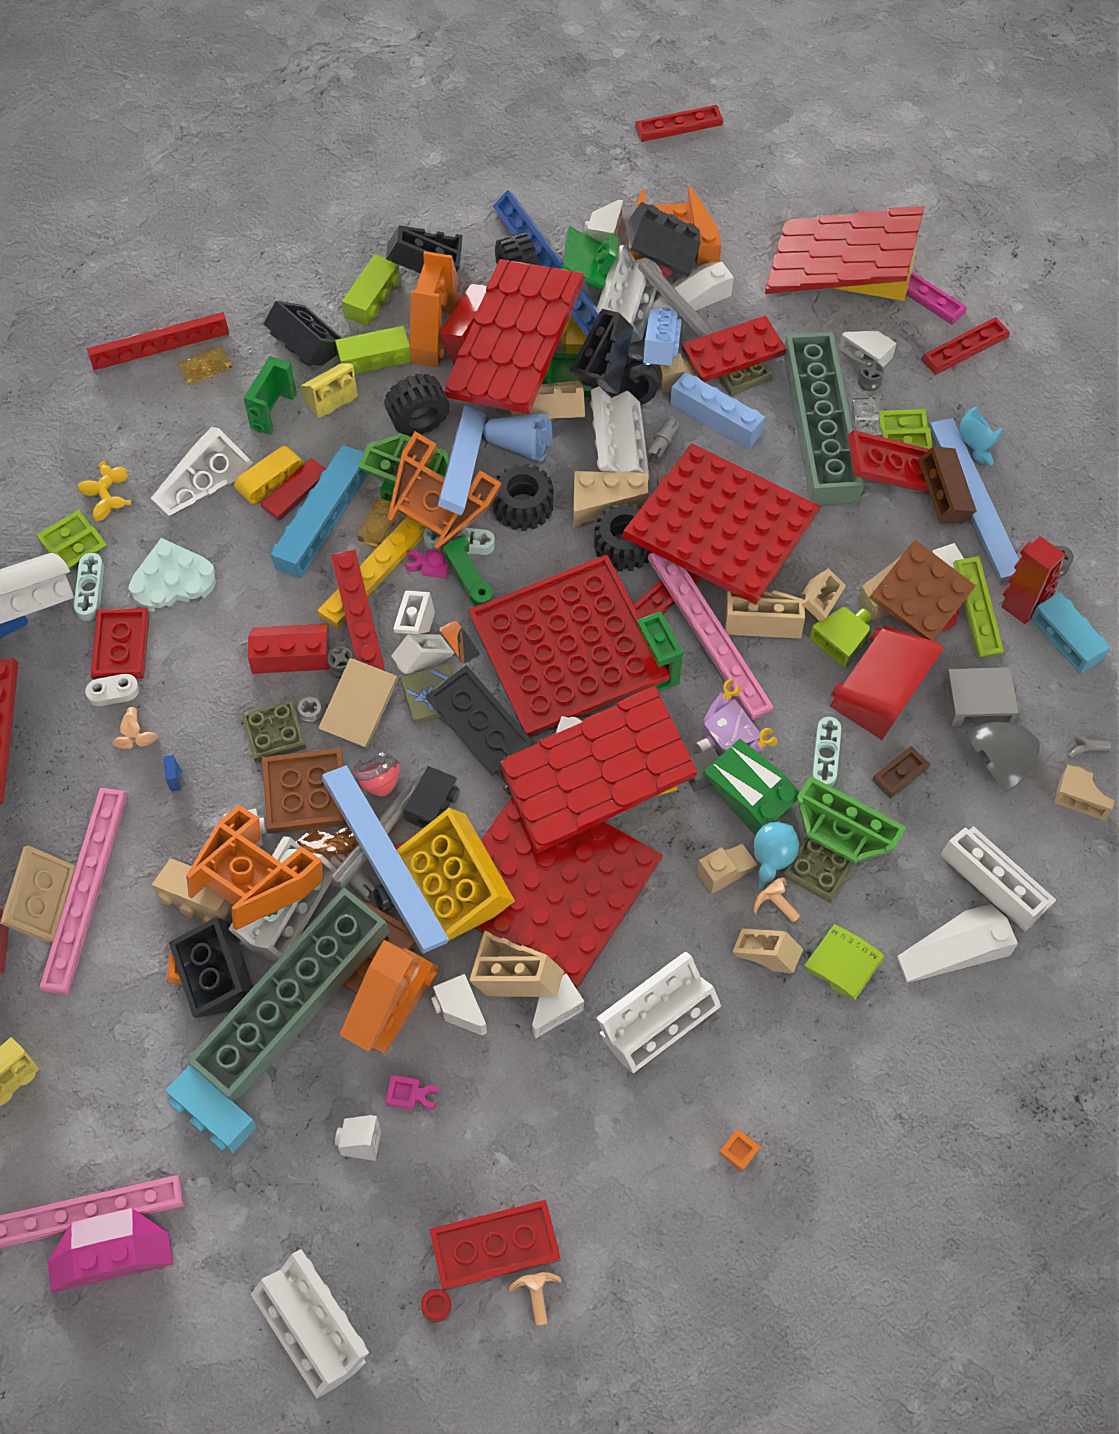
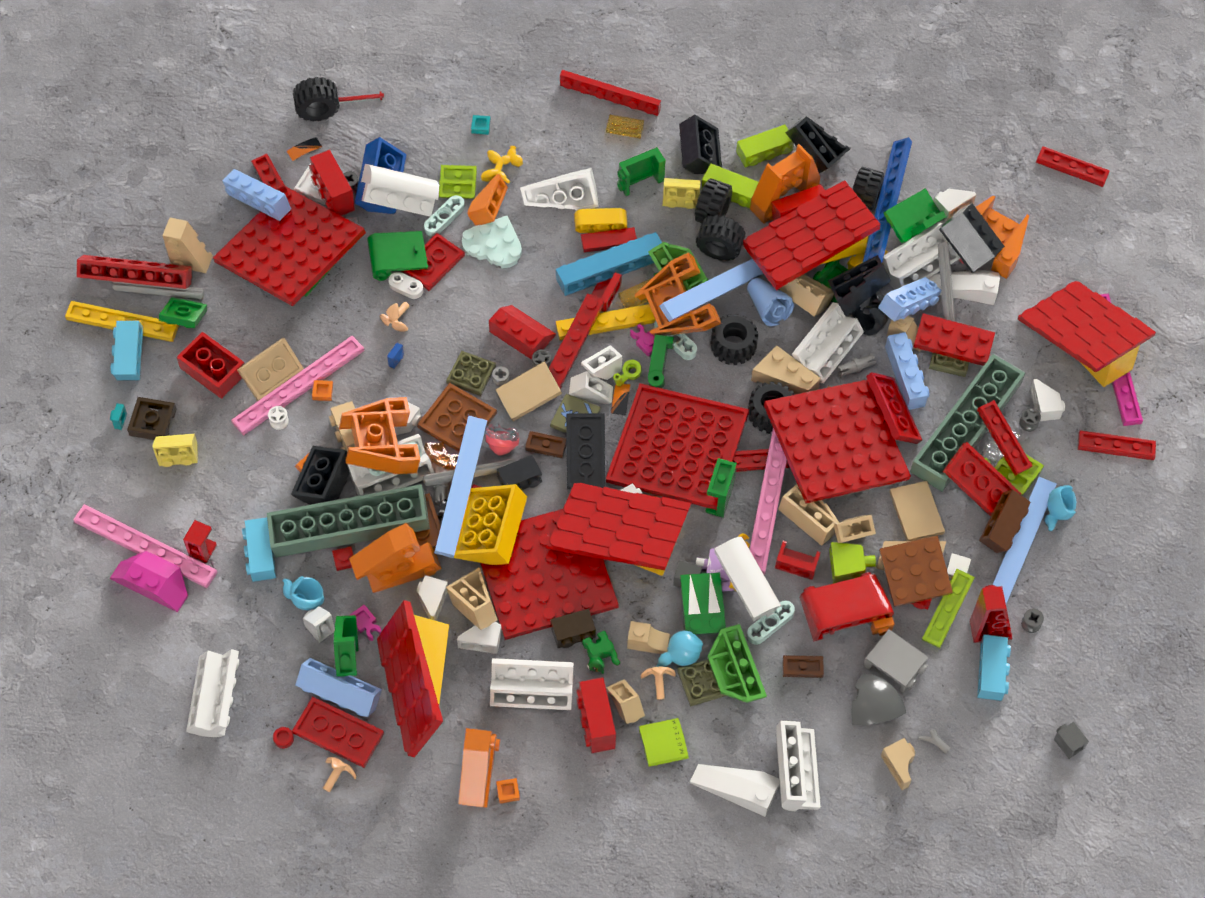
camera: 40 degrees right, 0 degrees up
(43, 464) = (480, 124): none -> teal plate
(70, 662) = (396, 253): none -> green door
(95, 936) = (274, 417): none -> white wheel
(120, 873) = (322, 390): none -> orange plate
(128, 539) = (487, 202): none -> orange slope
(131, 1158) = (197, 543): none -> red panel
(311, 1116) = (304, 593): none -> medium azure hair
(317, 1042) = (341, 558): none -> red plate
(340, 539) = (607, 290): none -> red panel
(375, 373) = (713, 200): none -> black tyre
(424, 1142) = (346, 645): none -> green panel
(428, 745) = (545, 444): none -> reddish brown plate
(444, 612) = (630, 364): none -> lime plate
(451, 1193) = (343, 690): none -> light blue brick
(529, 1106) = (413, 660): none -> red piece
(641, 917) = (573, 628): none -> dark brown brick
(688, 921) = (597, 651): none -> green animal
(697, 1151) = (477, 767): none -> orange wedge
(746, 455) = (893, 408): none -> red plate
(758, 988) = (596, 715): none -> red brick
(779, 722) = (747, 578): none -> white brick
(794, 672) = (797, 562): none -> red panel
(854, 538) = (917, 511): none -> tan tile
(873, 405) = (1004, 437): none -> red tile
(936, 672) = (881, 626): none -> orange plate

